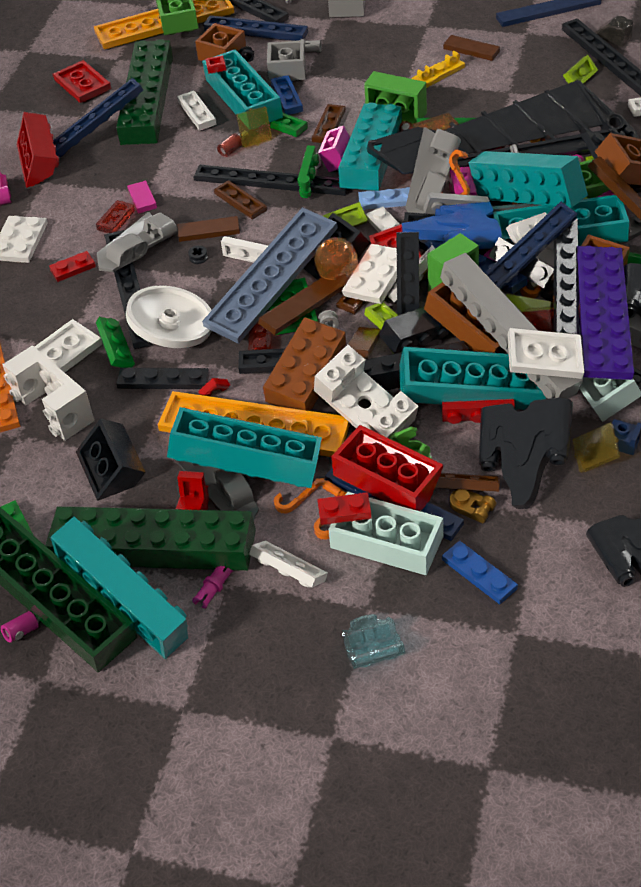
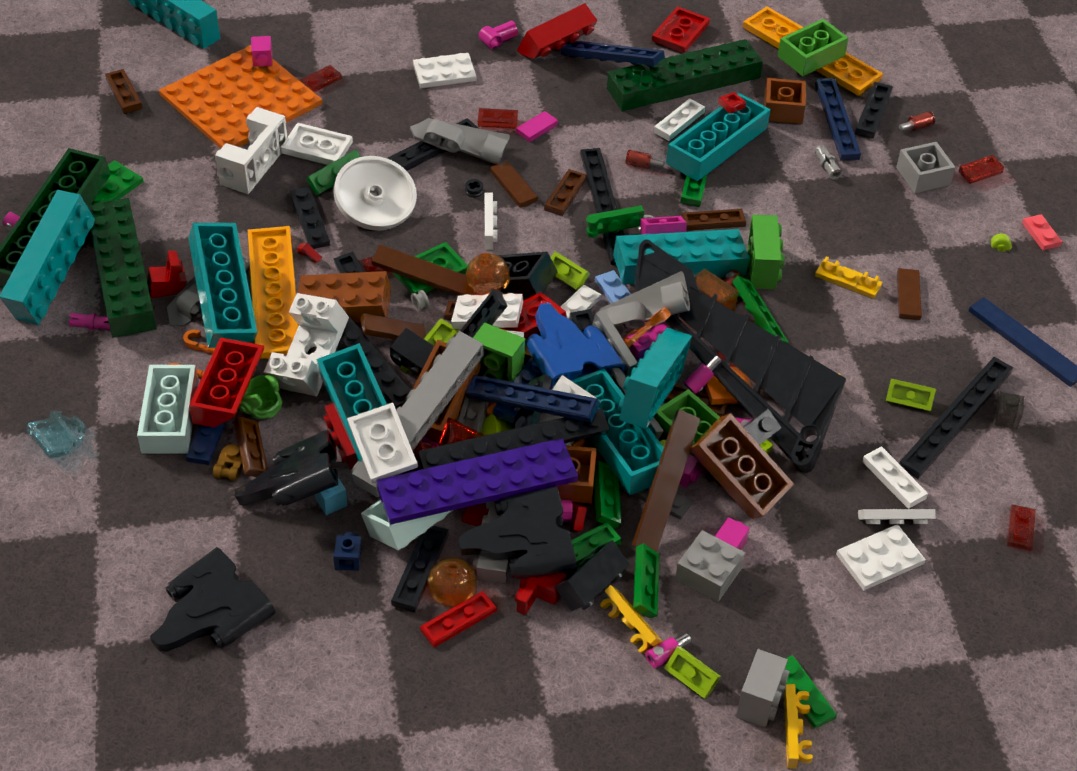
camera: 60 degrees right, 0 degrees up
(72, 266) = (421, 112): red plate -> none
(109, 459) = (208, 210): black slope -> none
(250, 53) = (787, 125): black plate -> none
(254, 127) = (663, 163): clear yellow piece -> none
(269, 275) = (452, 237): sand blue plate -> none
(286, 59) = (786, 155): light grey brick -> none
(288, 564) = (123, 359): white plate -> none
(289, 98) = (739, 174): blue plate -> none
(344, 508) = (171, 366): red plate -> none
(479, 572) = (154, 488): blue plate -> none
(596, 448) = (322, 533): clear yellow piece -> none

